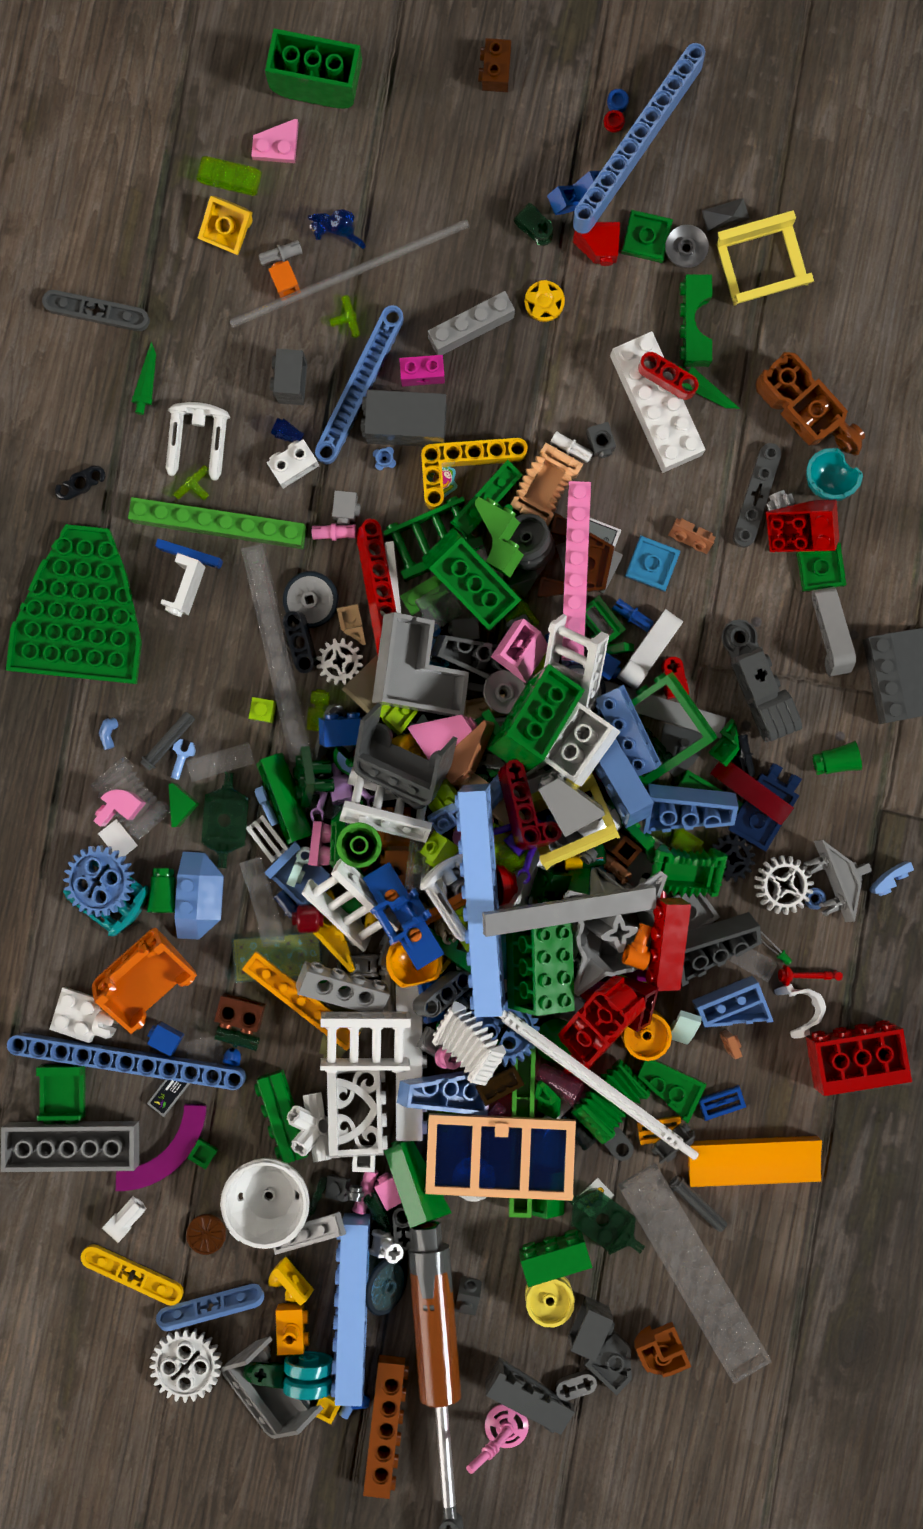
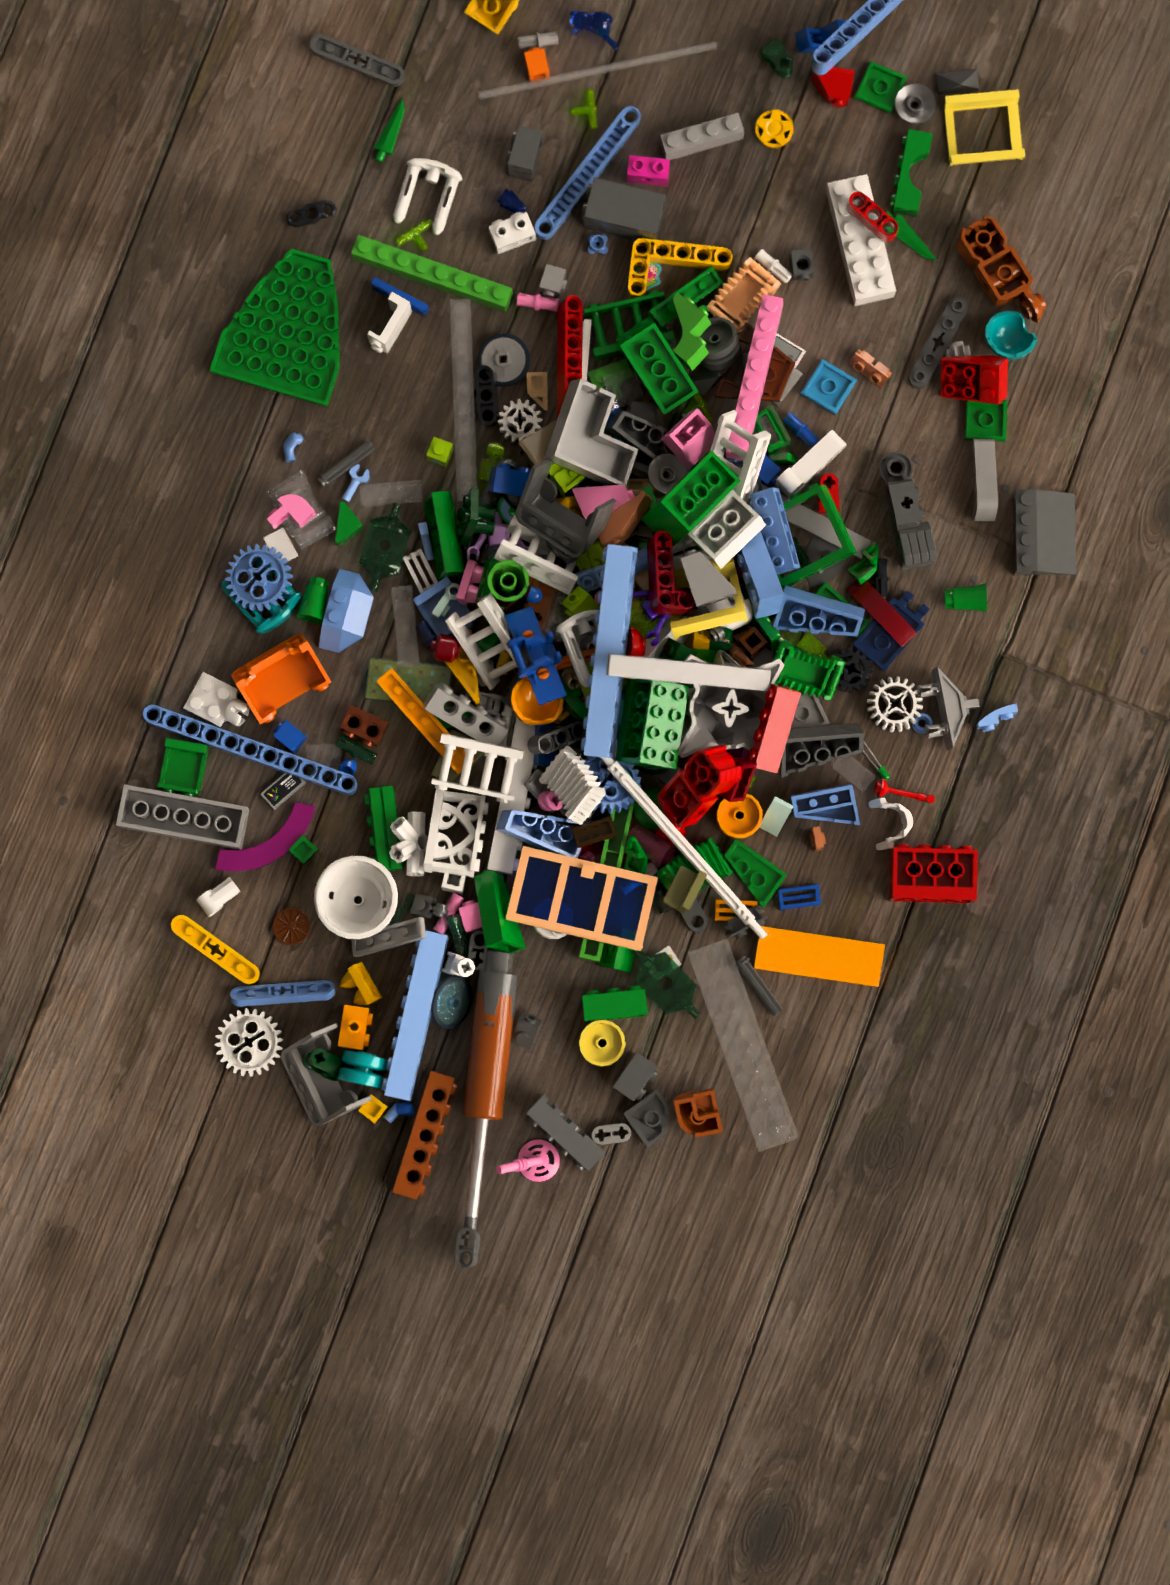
camera: 10 degrees right, 5 degrees down
(390, 850) = (535, 595): none -> blue hinge
(606, 1129) = (684, 889): none -> olive panel
(637, 953) = (743, 730): orange pin -> none

